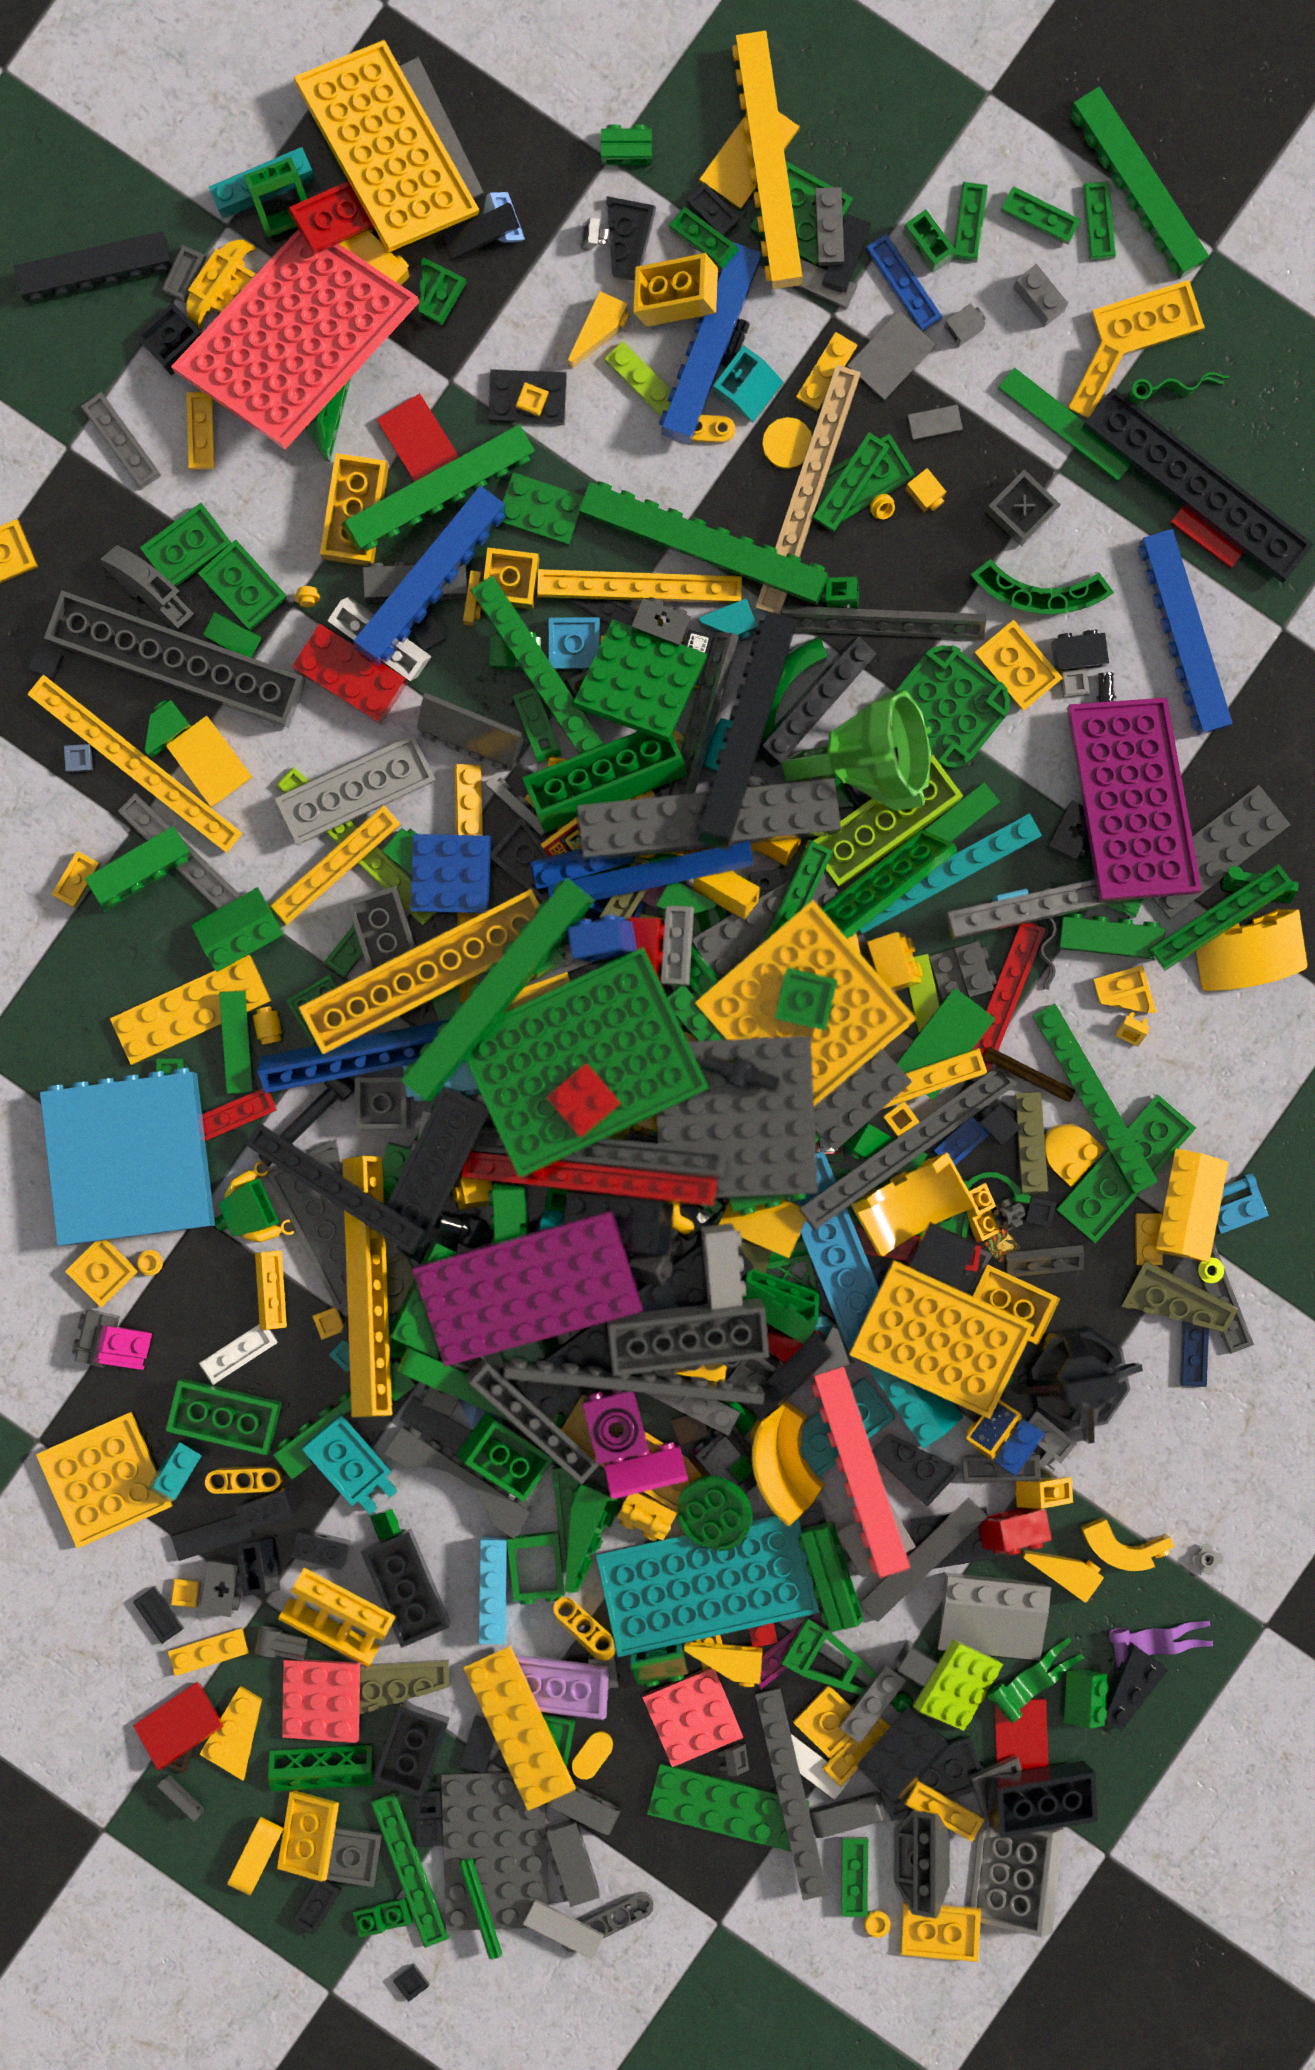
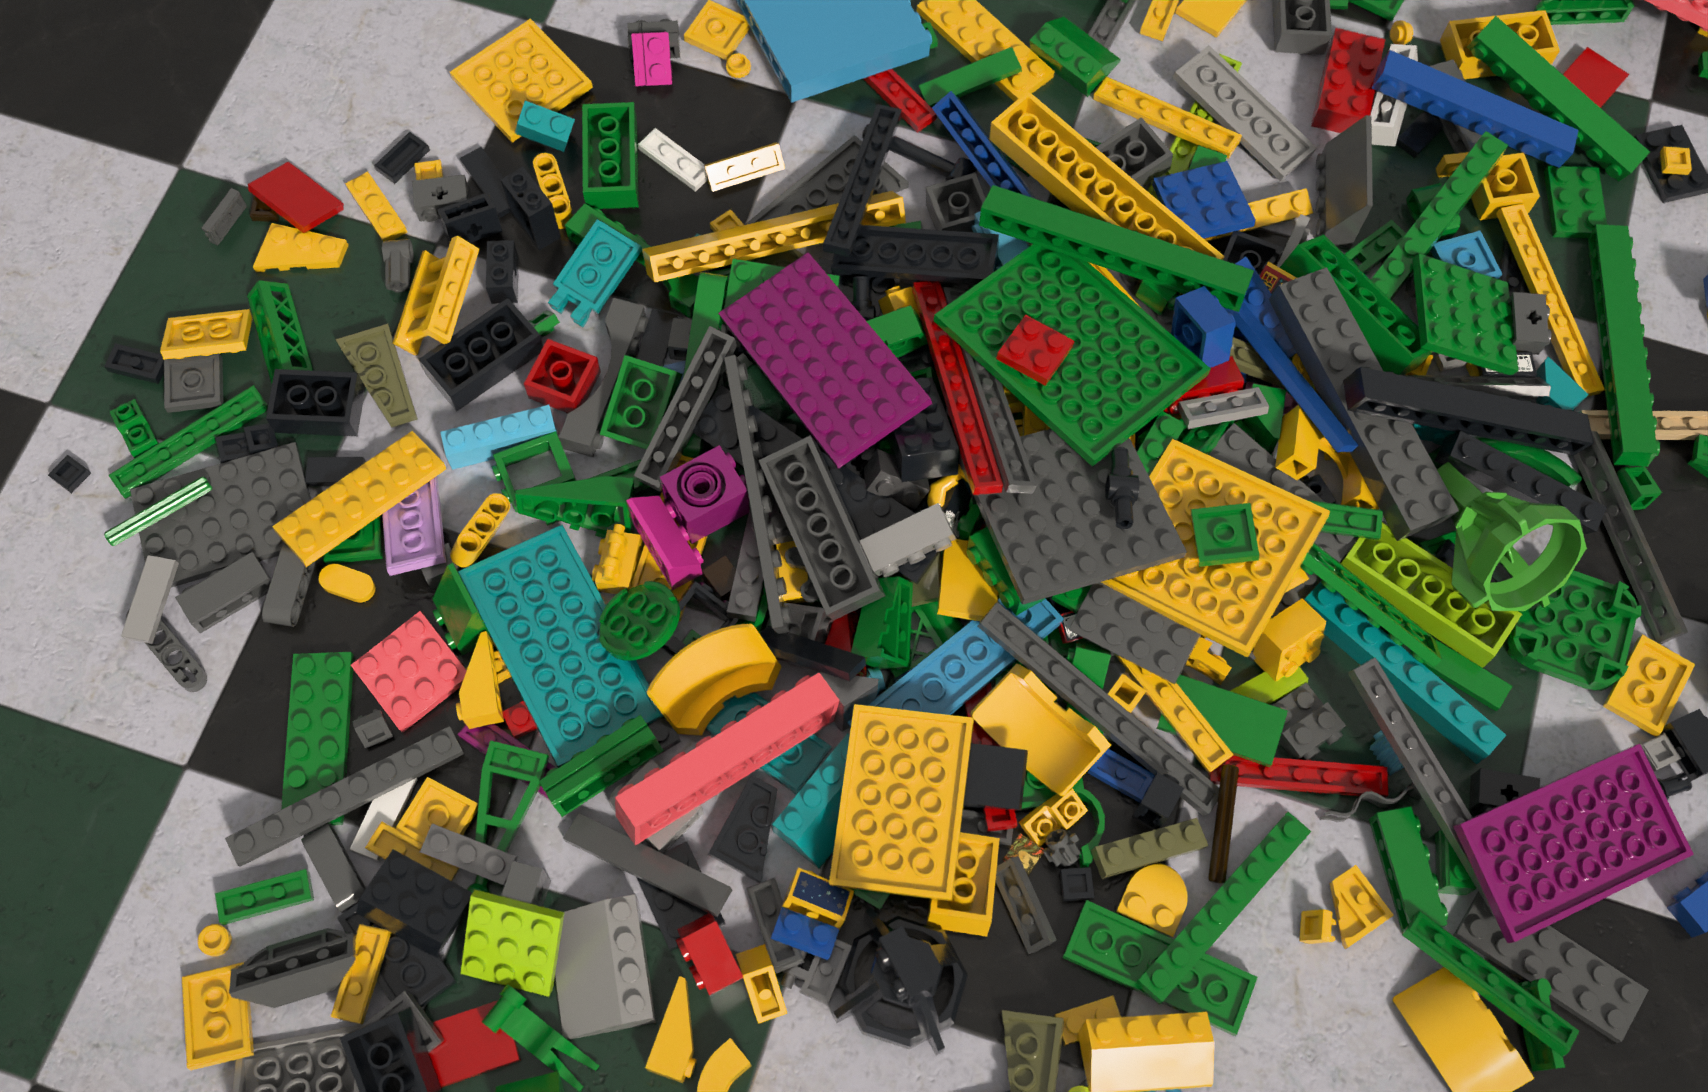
camera: 70 degrees right, 20 degrees down
(248, 1209) = (816, 126): green torso -> none
(255, 1856) = (176, 295): yellow beam -> none
(267, 1025) = (994, 101): yellow brick -> none
(321, 1700) = (348, 312): coral plate -> none
(452, 1520) = (562, 377): none -> red brick

